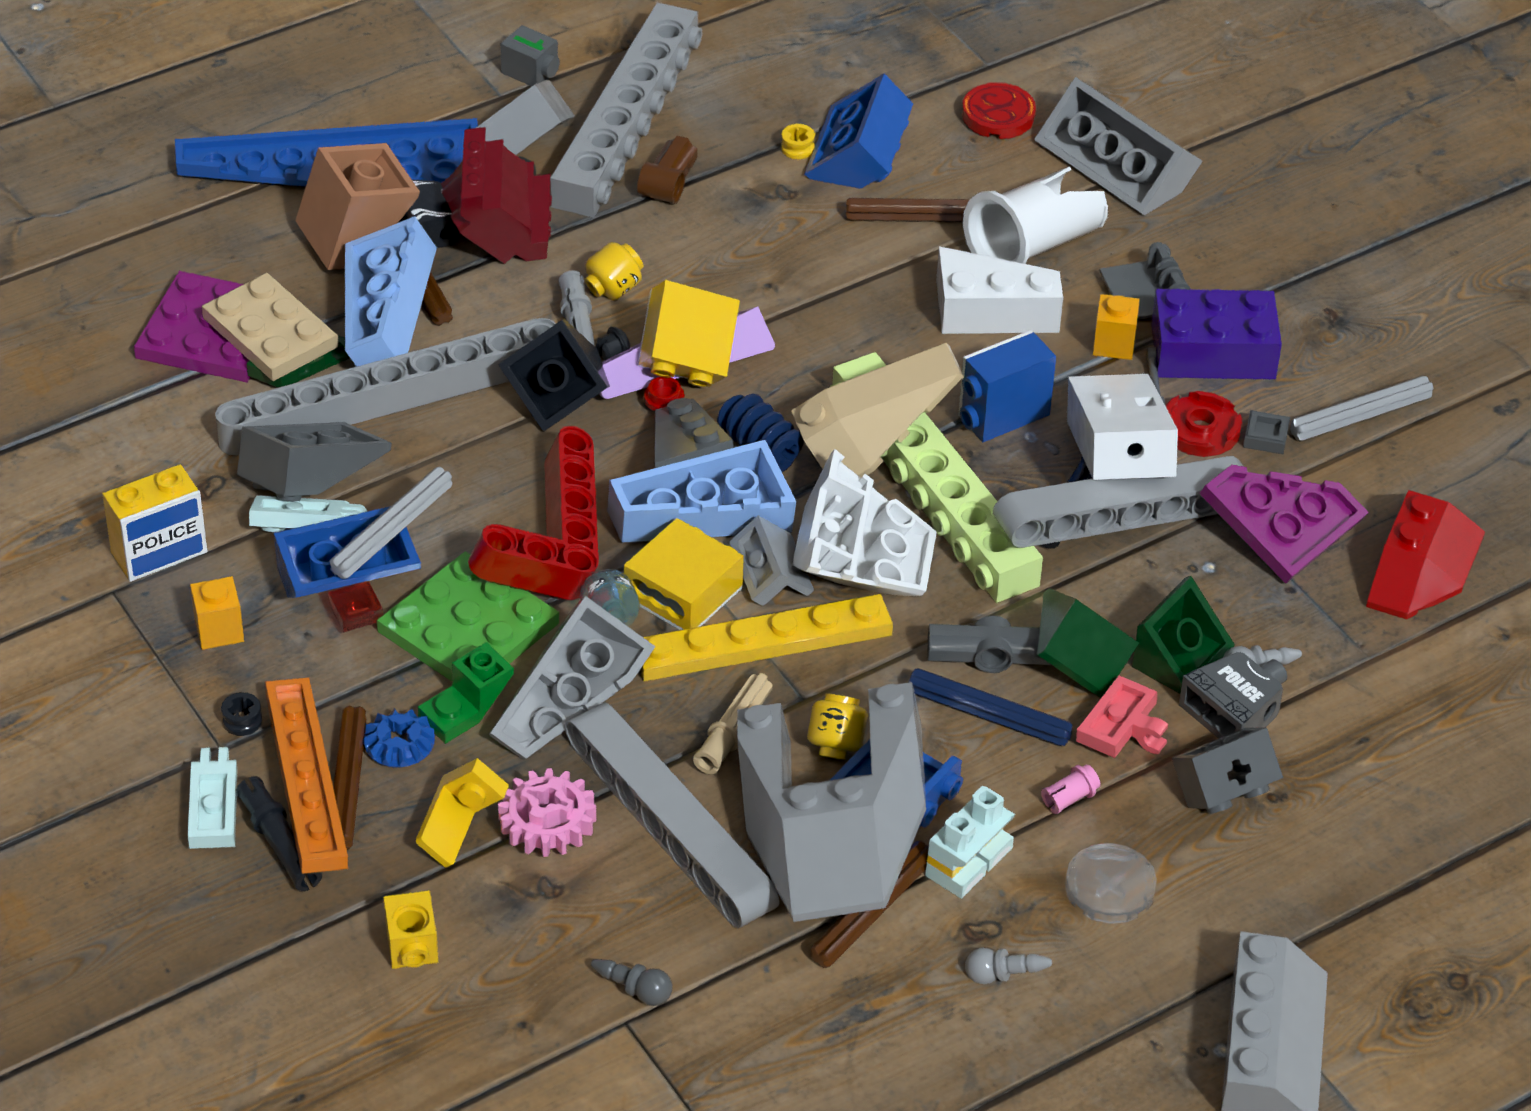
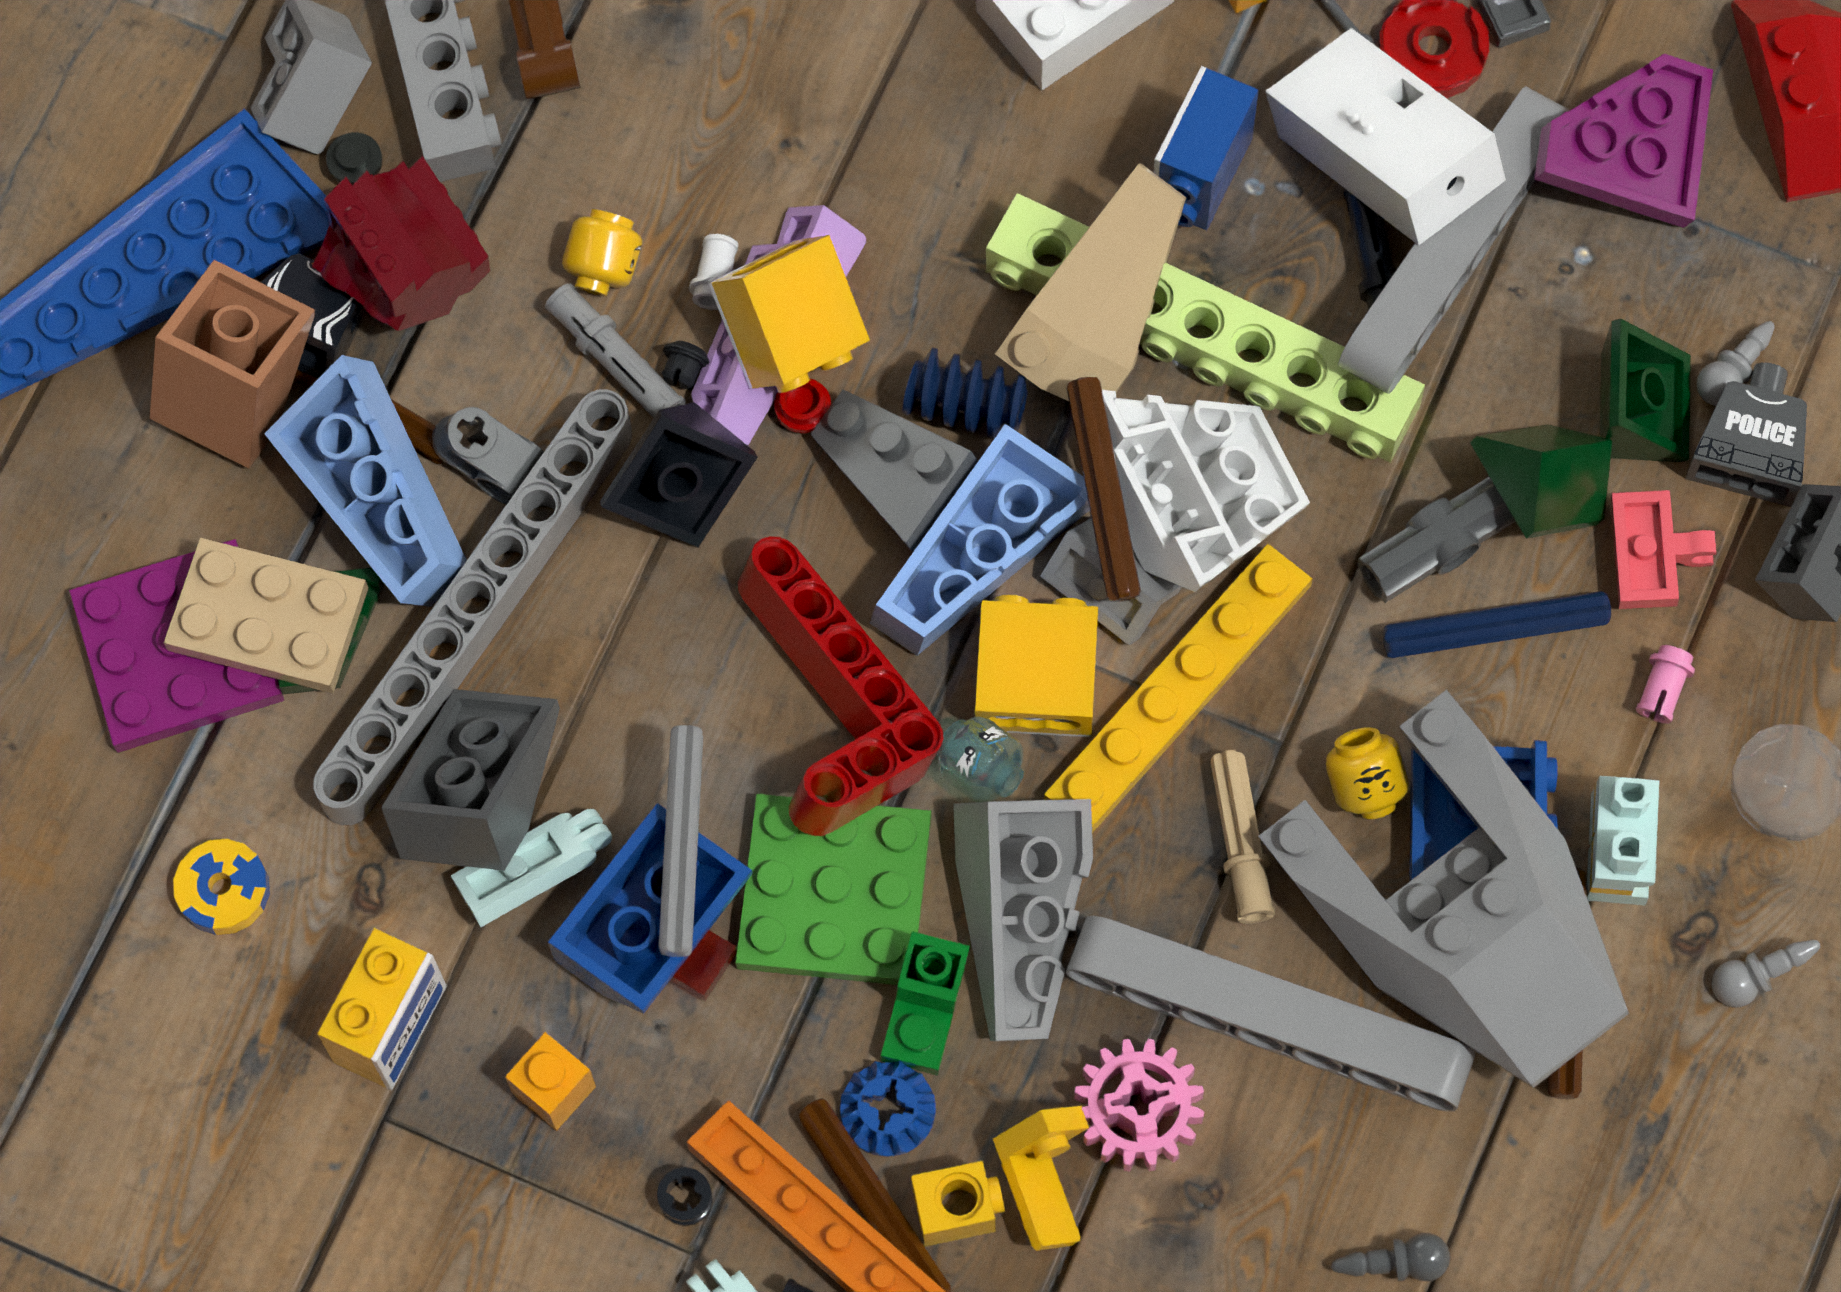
camera: 30 degrees left, 25 degrees up
(129, 440) = (206, 866): none -> yellow piece
(391, 798) = (941, 1226): none -> yellow brick
(460, 321) = (495, 458): none -> piece
(794, 497) = (1103, 489): none -> reddish brown axle

